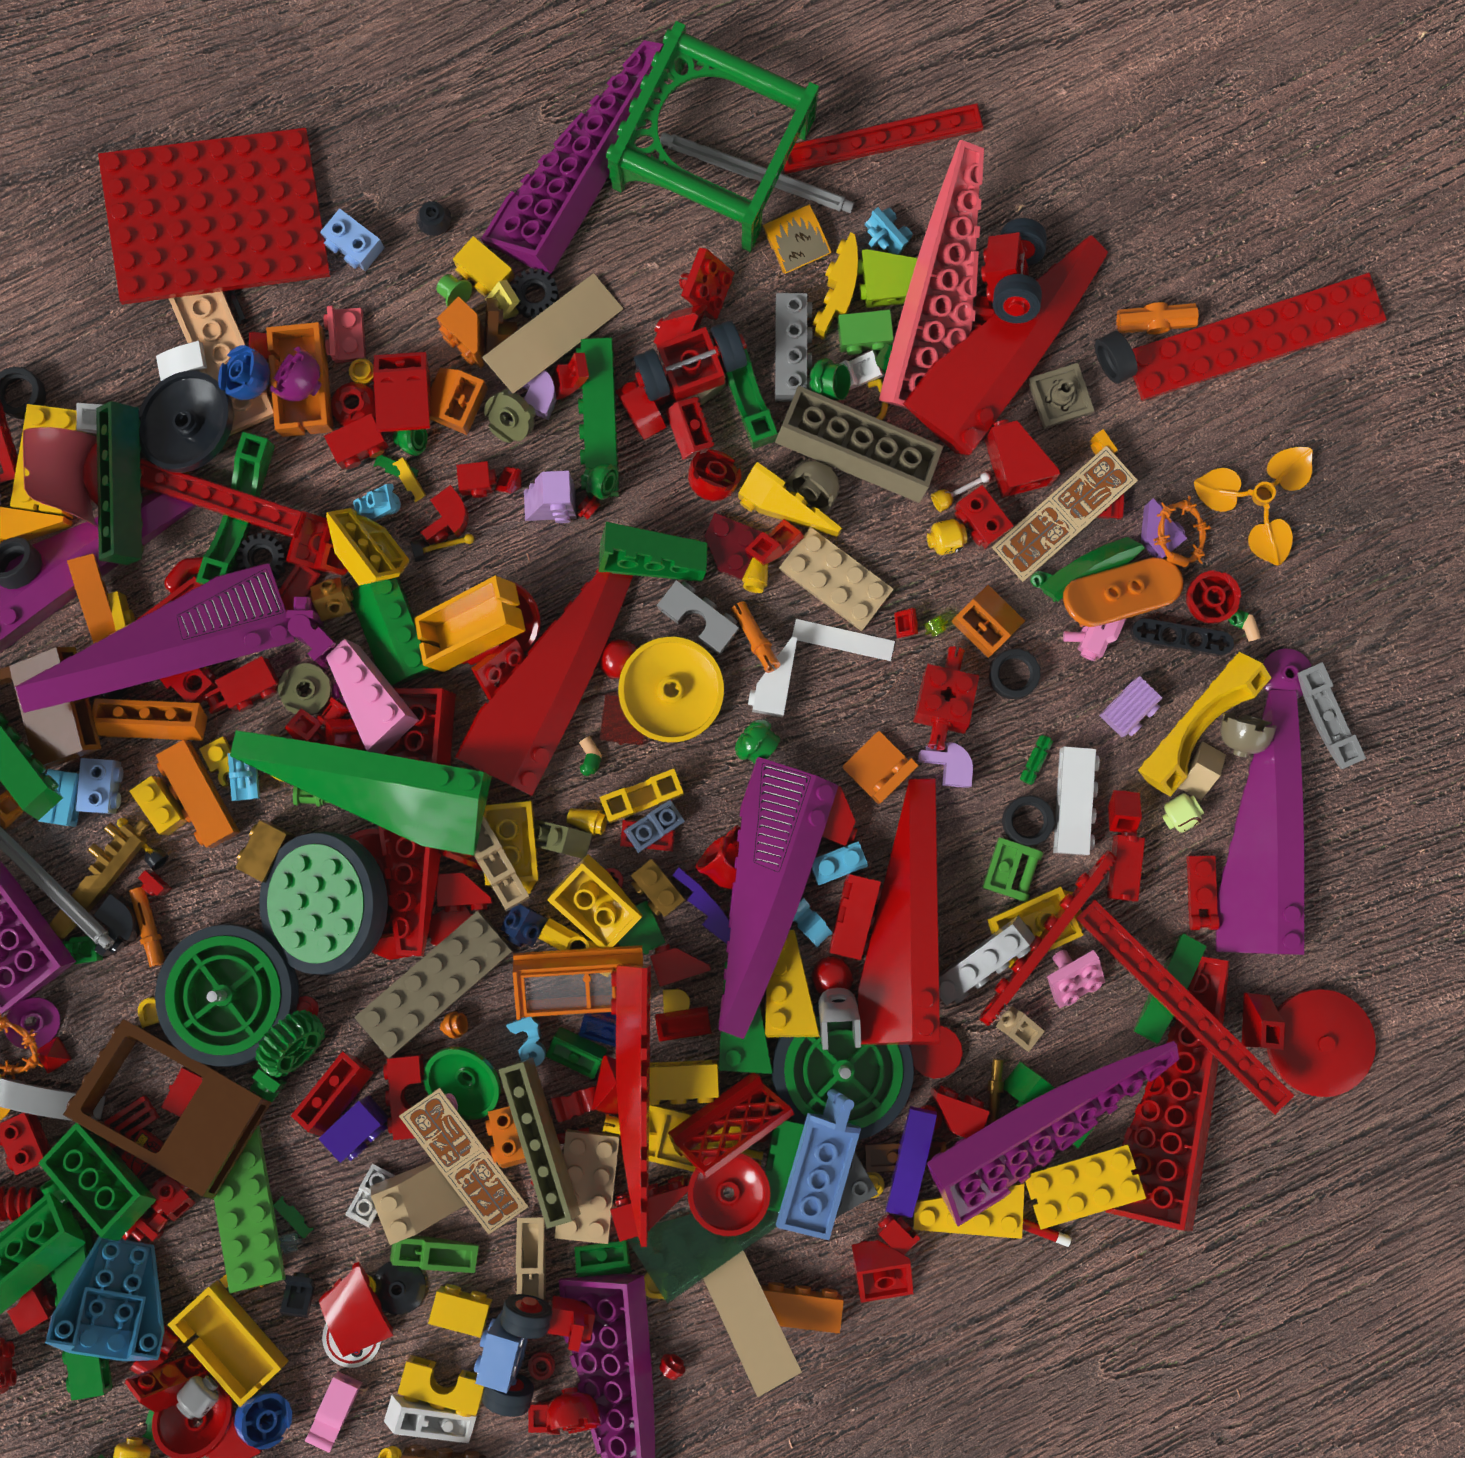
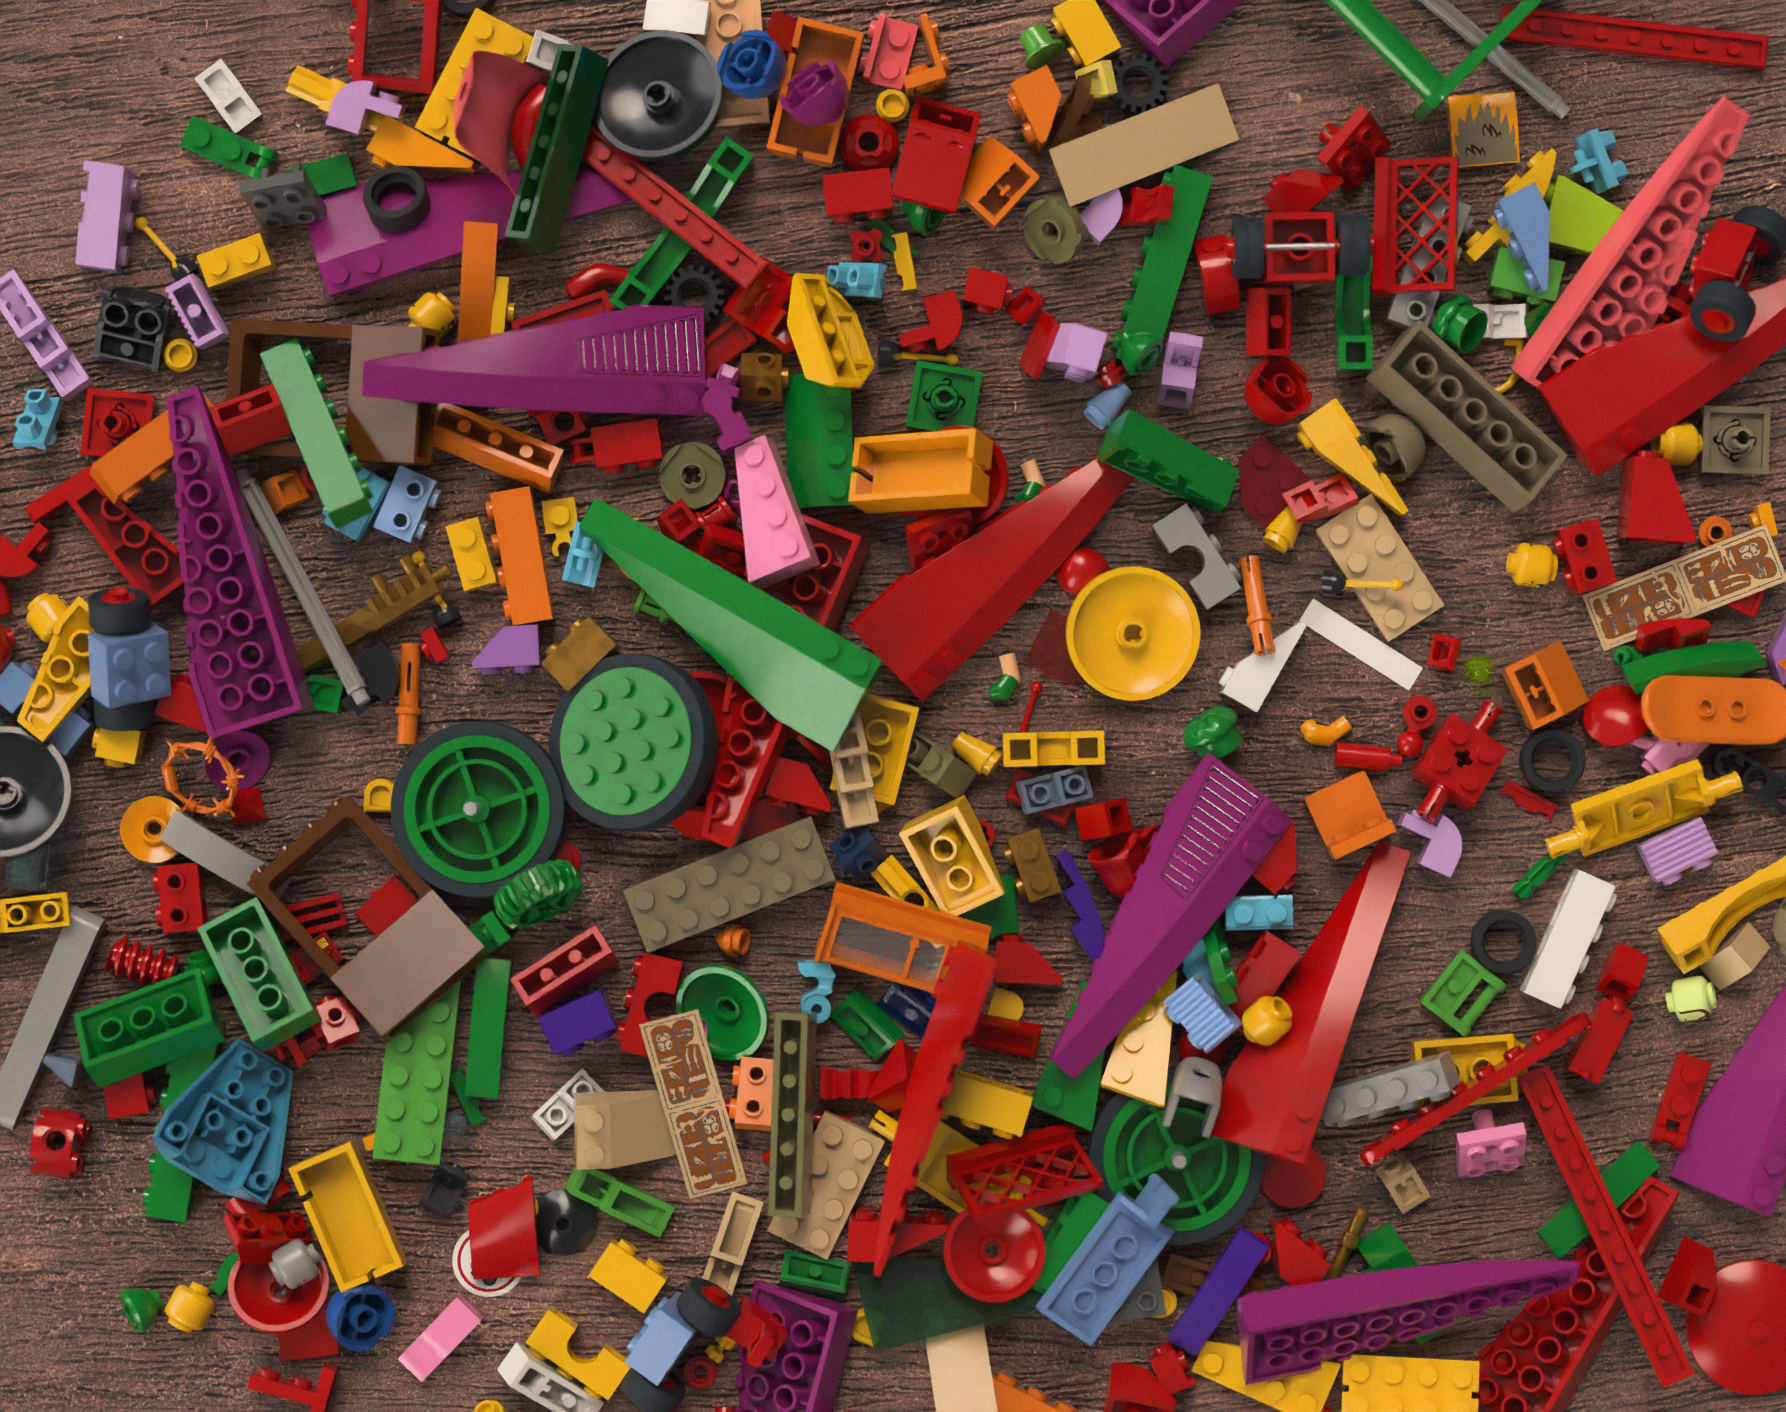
camera: 20 degrees right, 5 degrees up
(72, 636) = (433, 312): none -> yellow head
(212, 864) = (511, 647): none -> medium lavender slope
(289, 1159) = (488, 1027): none -> green slope
(377, 339) = (924, 79): none -> orange bracket
(380, 470) = (873, 252): none -> red plate
(459, 558) = (930, 379): none -> green plate
(527, 501) = (1039, 344): none -> red piece
(547, 1346) = (716, 1352): none -> yellow piece
(558, 602) = (1034, 481): none -> arm
(592, 532) = (1107, 405): none -> light blue cone
(615, 756) = (1035, 688): none -> red hinge
(637, 485) = (1179, 370): none -> lavender brick
(698, 835) = (1096, 819): none -> red brick
(750, 327) = (1387, 231): none -> red fence
(808, 601) = (1335, 583): none -> hinge
(820, 907) = (1219, 957): none -> green plate
(822, 954) = (1201, 1013): none -> light blue brick
(839, 715) = (1323, 734): none -> light orange arm
(852, 290) = (1528, 227): none -> medium blue slope
(873, 941) = (1267, 1020): none -> yellow head
(876, 720) = (1365, 756): none -> red cylinder
(905, 697) = (1411, 742): none -> red plate
(943, 498) = (1545, 516): hinge -> none
(1008, 709) = (1528, 799): none -> red piece
(1021, 409) = (1678, 444): none -> yellow head
(1049, 625) = (1614, 716): none -> red dish
(1063, 465) = (1706, 526): none -> orange plate
(1067, 549) = (1676, 632): none -> red slope
(1093, 685) = (1641, 808): none -> yellow plate

